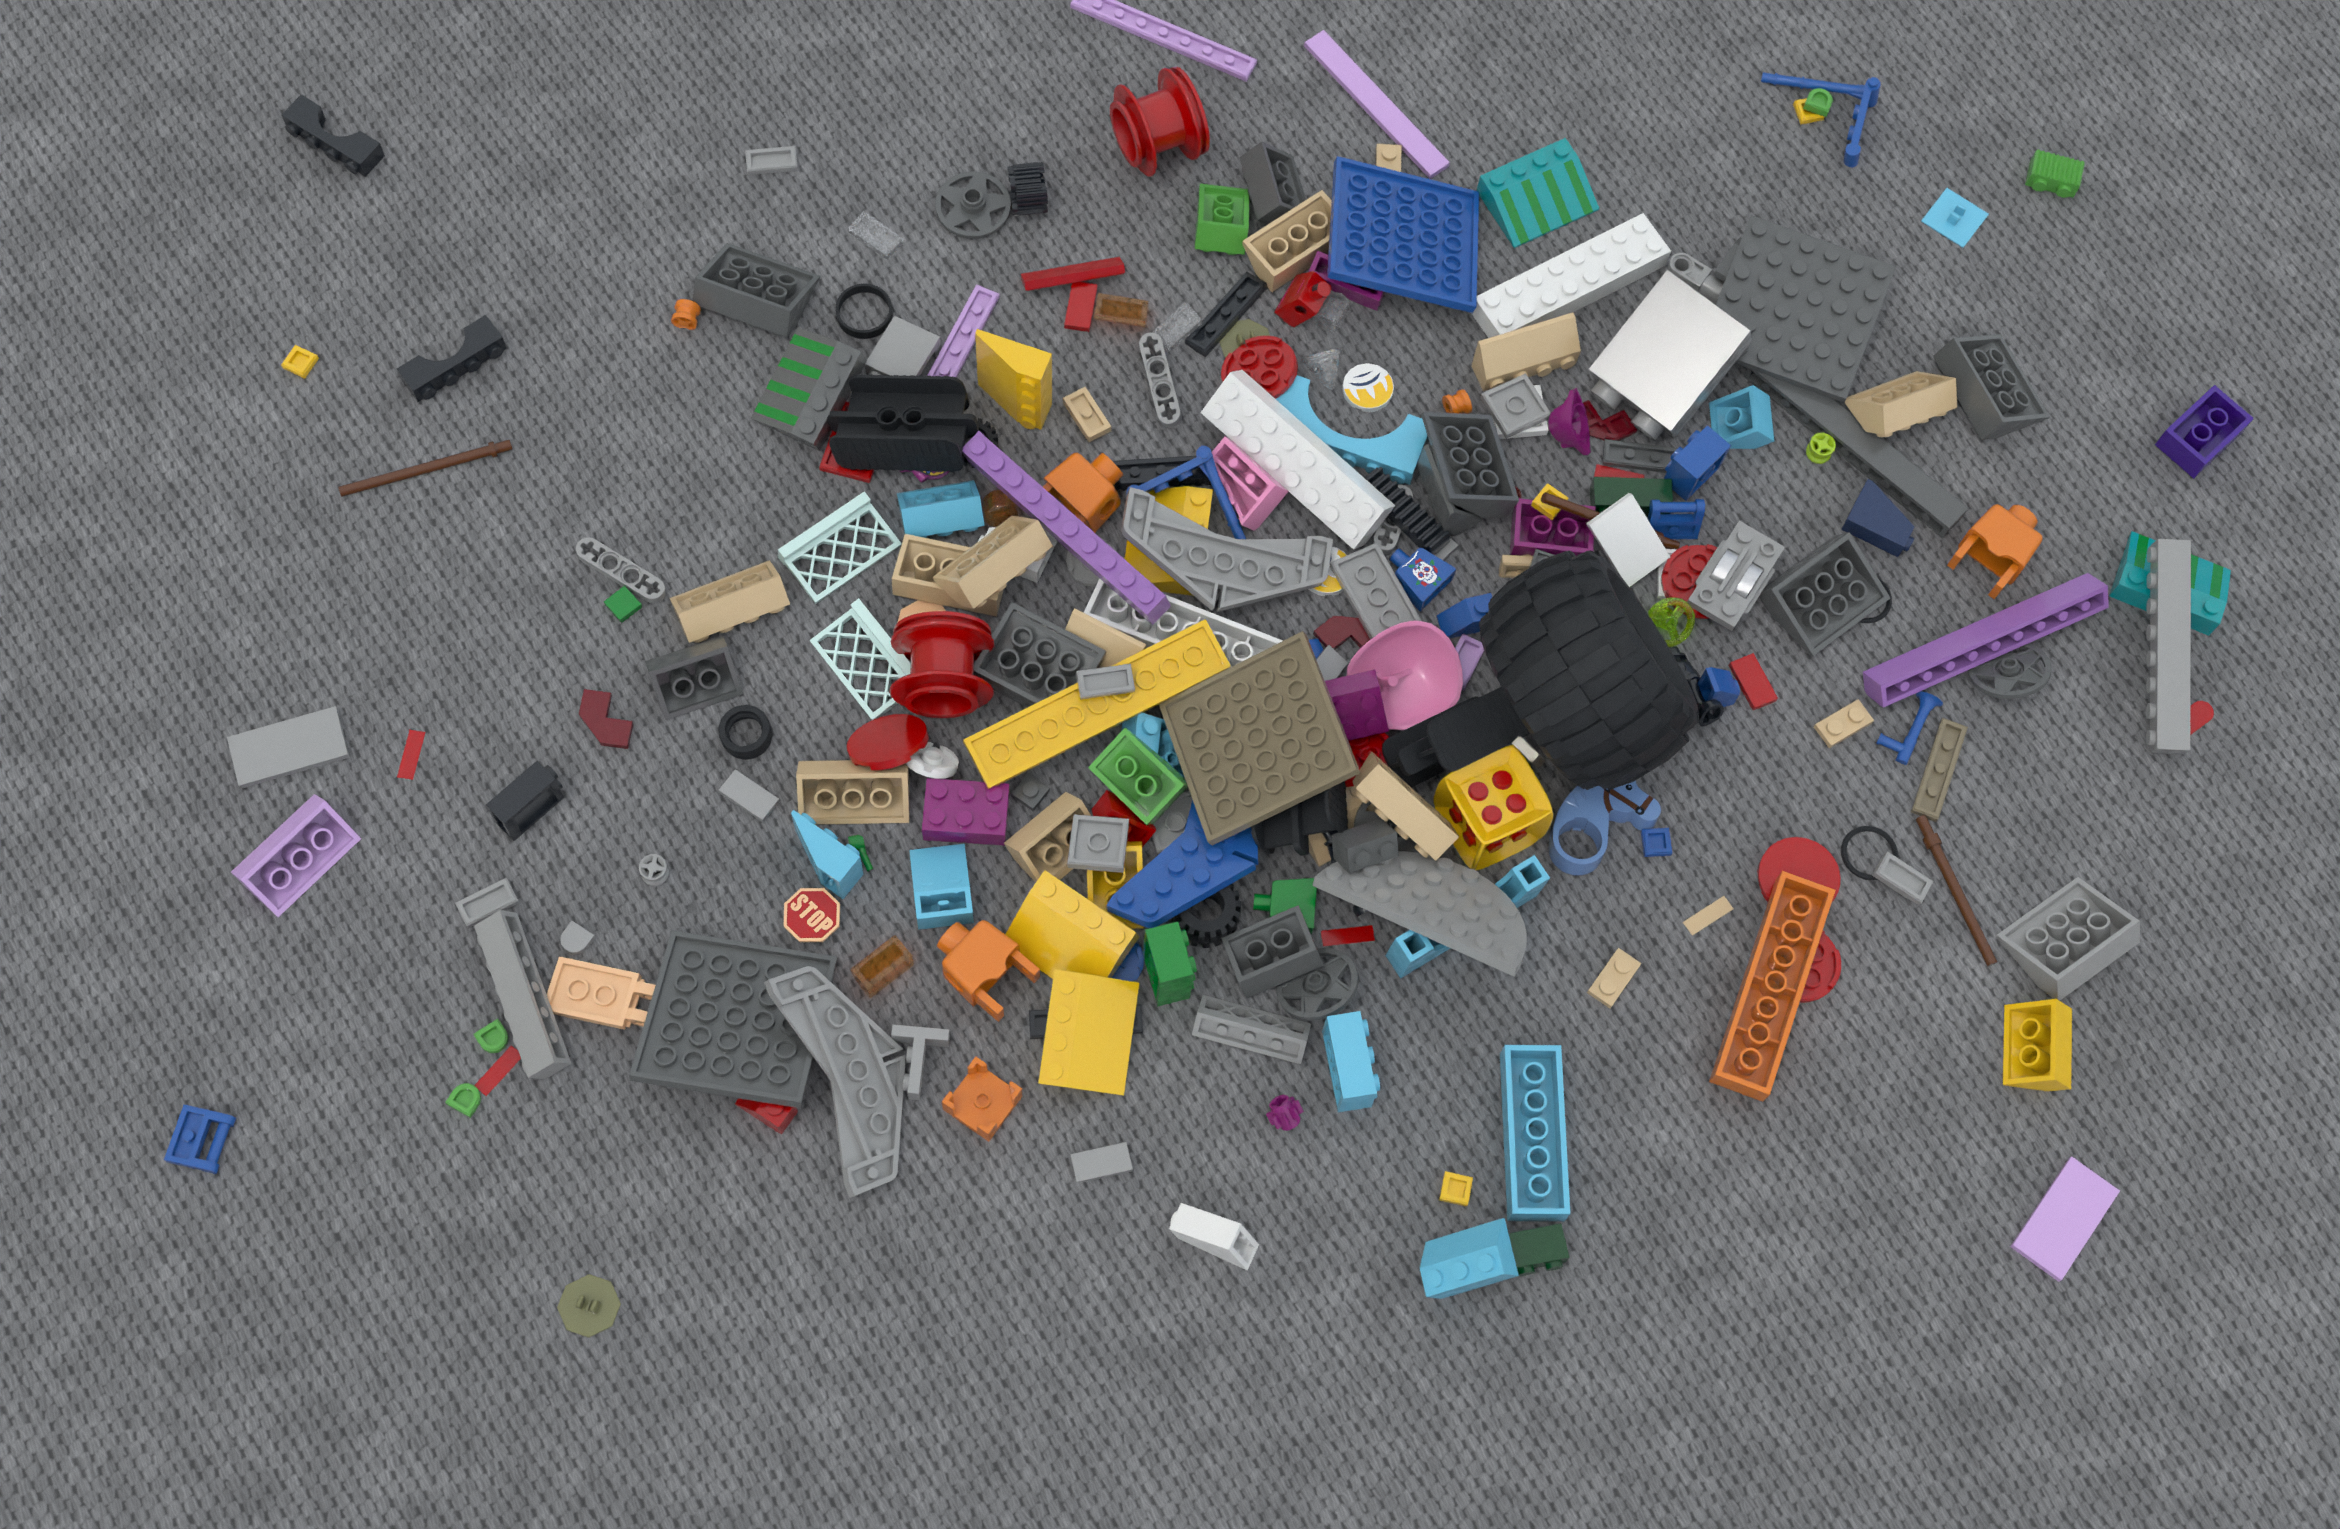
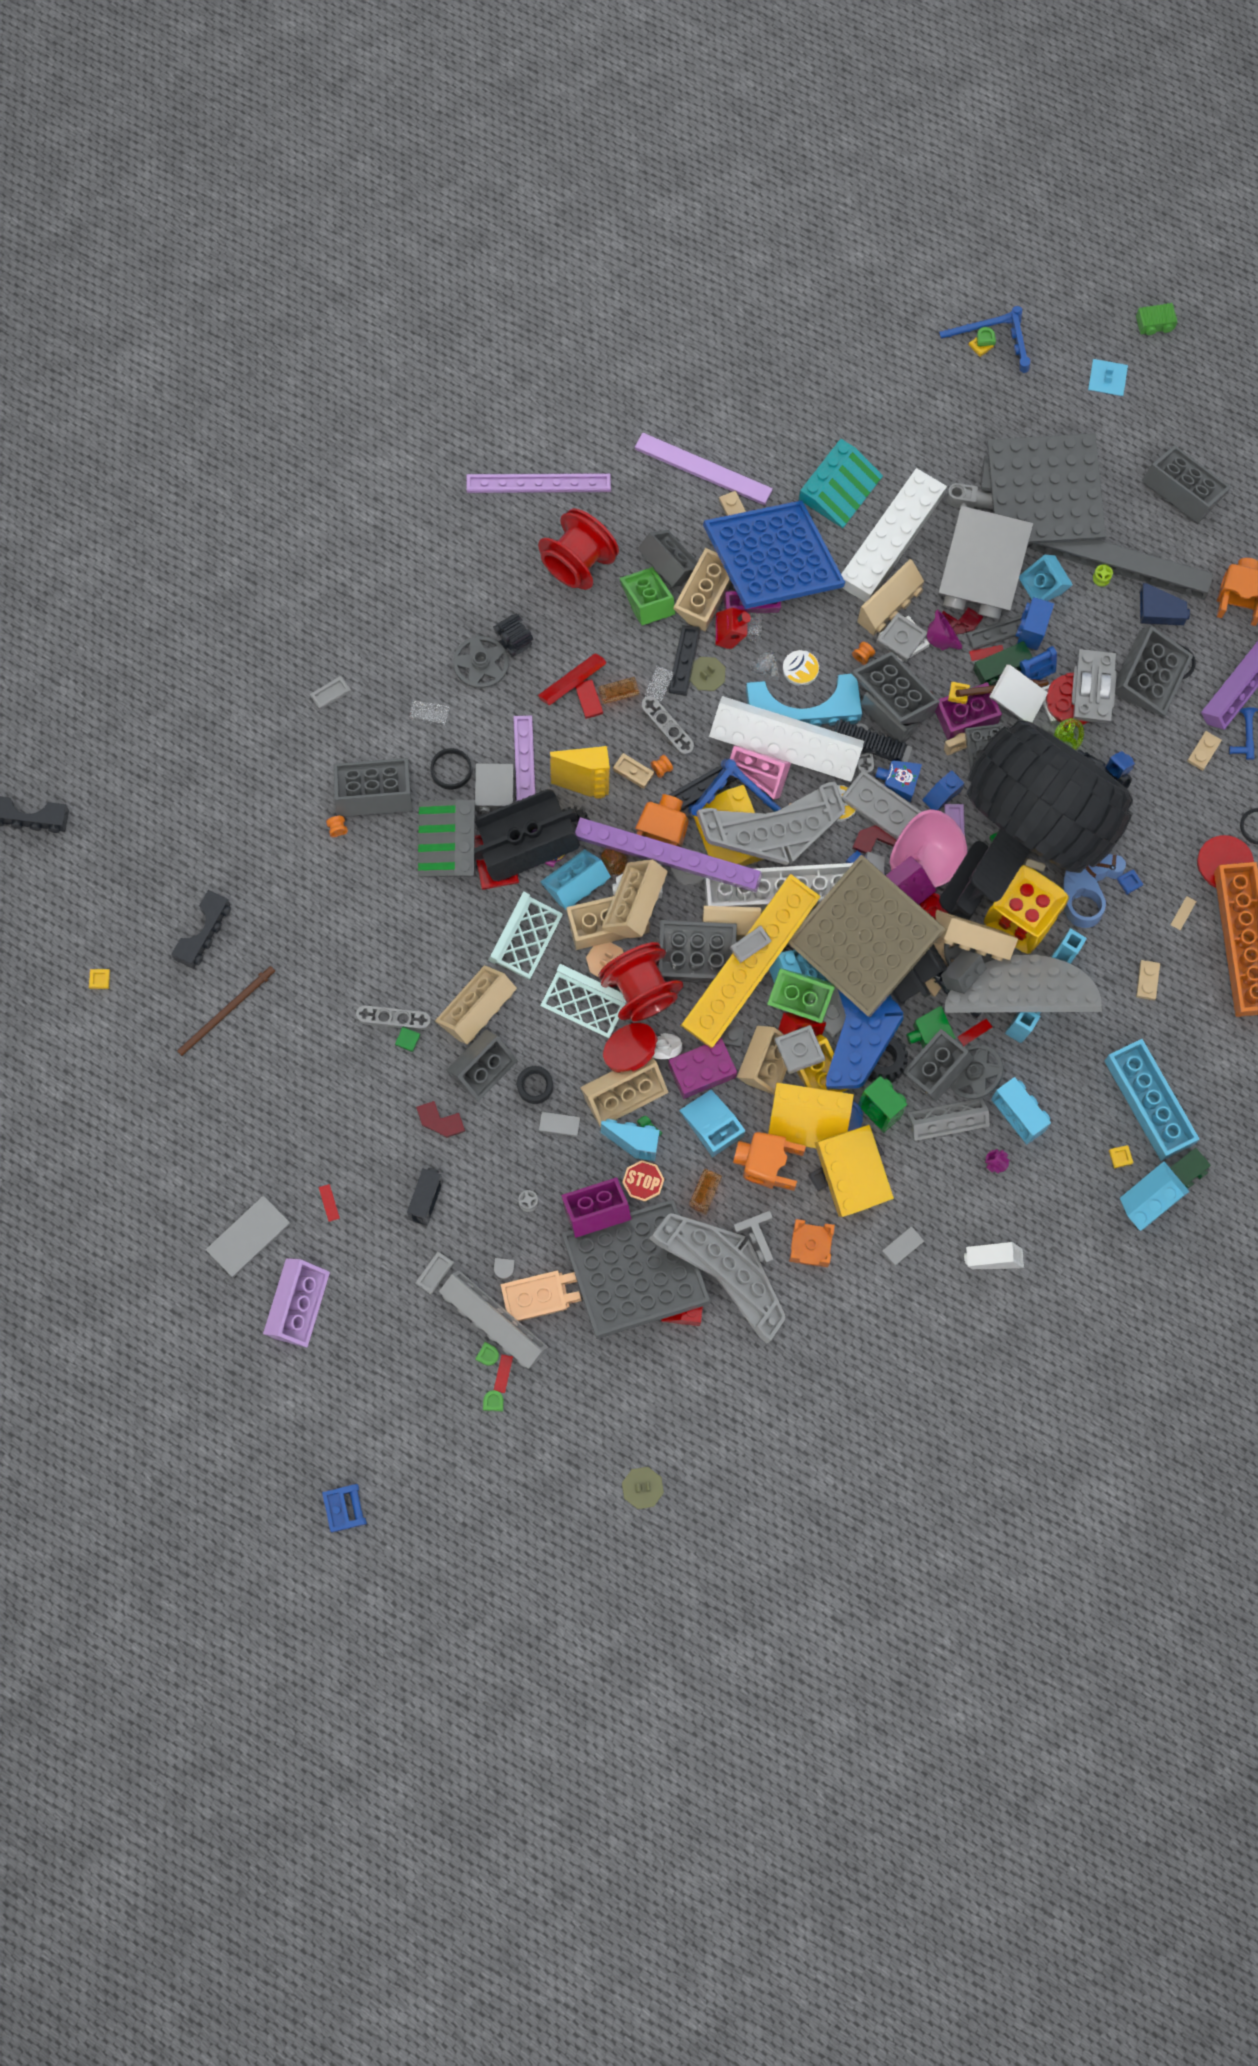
camera: 25 degrees left, 5 degrees up
(730, 917) = (596, 1207): none -> magenta brick
(1125, 424) = (661, 766): none -> orange wheel
(1266, 361) = (728, 681): red tile -> none
(1753, 681) = (1136, 749): red tile -> none
(1903, 402) = (1139, 521): tan slope -> none

